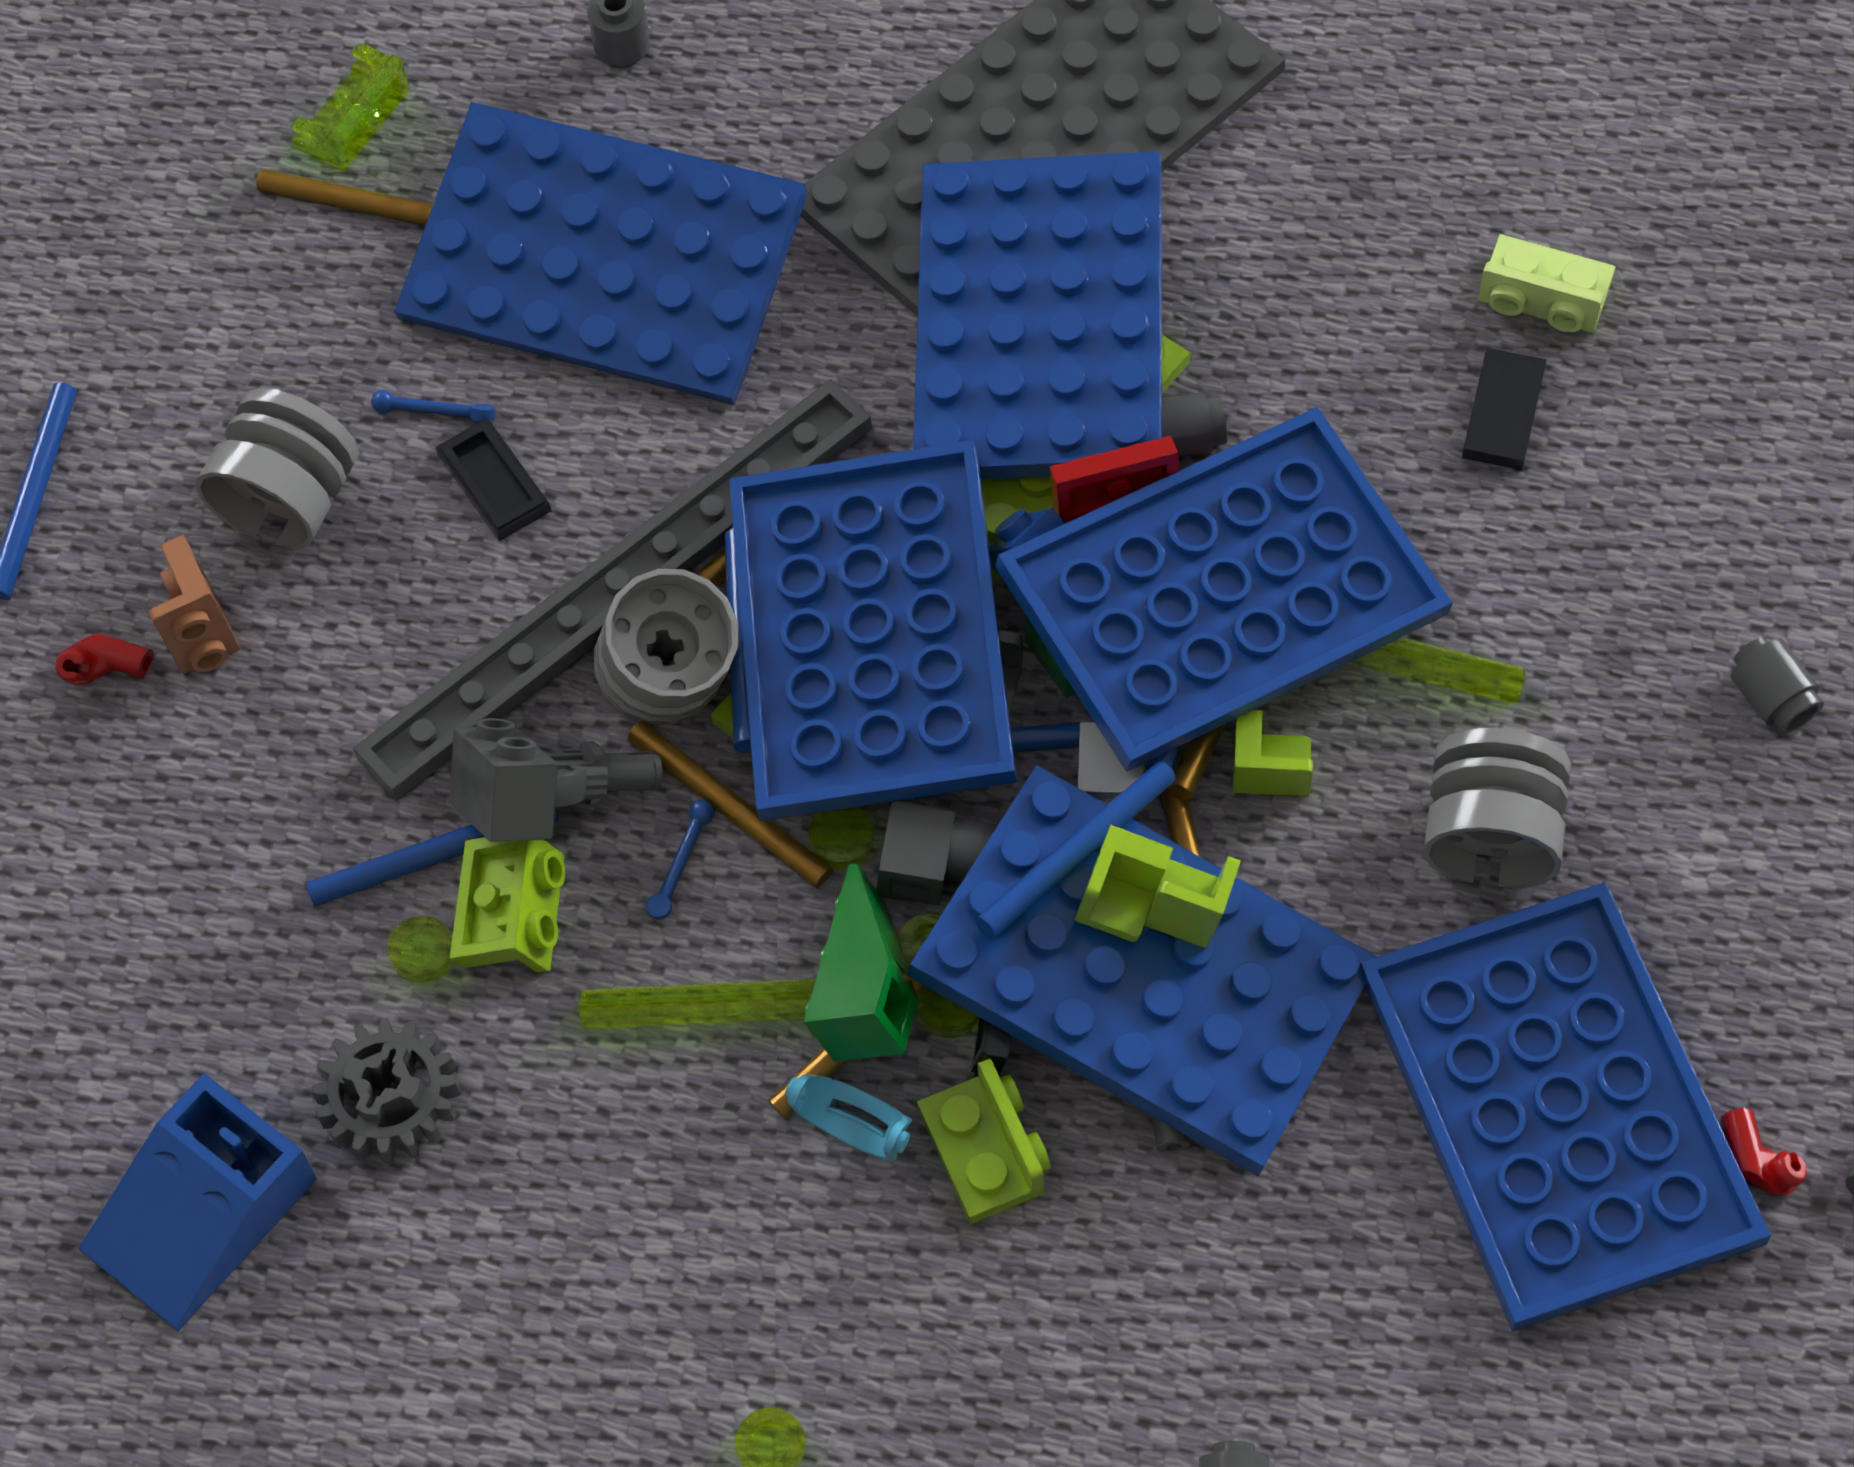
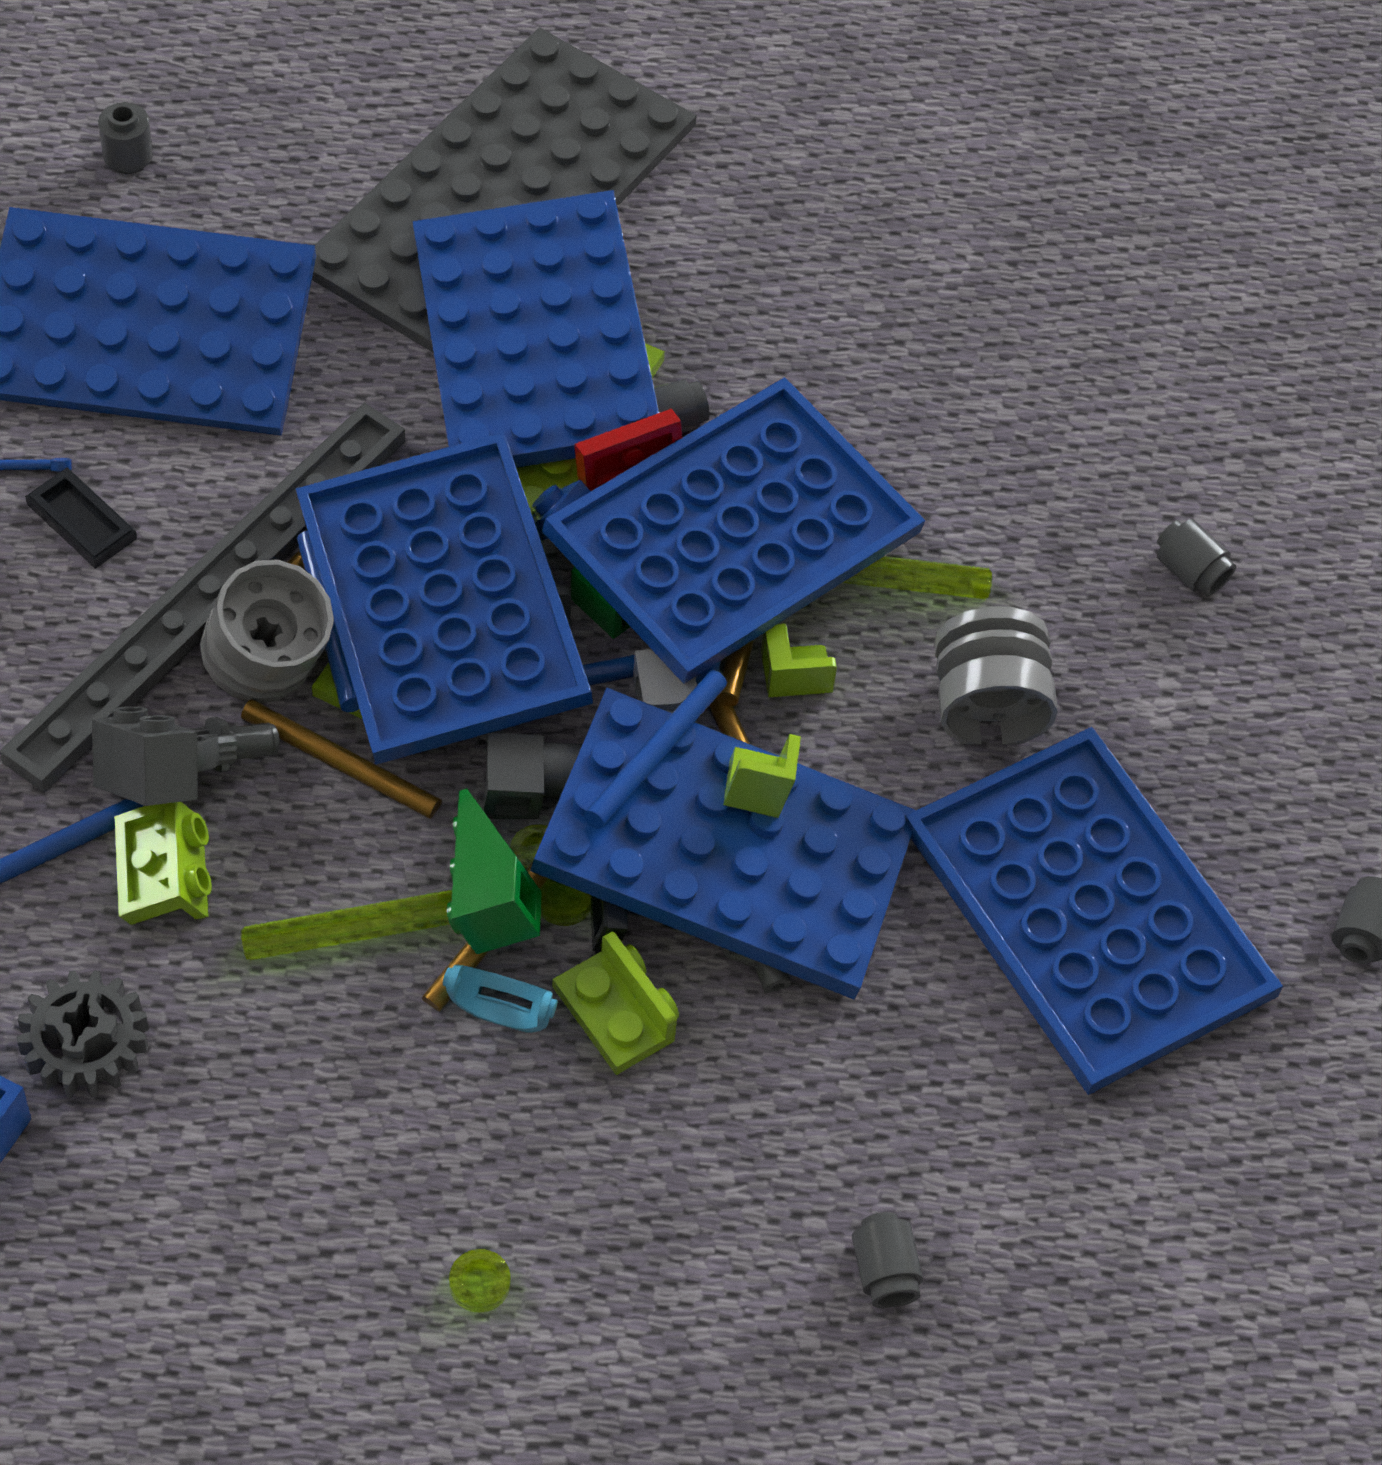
camera: 20 degrees left, 5 degrees down
(420, 949) = (90, 913): clear neon green tile -> none
(659, 904) = (295, 849): blue hinge -> none
(841, 837) = (444, 772): clear neon green tile -> none
(1123, 883) = (702, 769): lime panel -> none
(1504, 409) = (930, 369): black tile -> none
(1545, 284) = (945, 269): yellowish green bracket -> none
(1763, 1168) = (1266, 937): red arm -> none

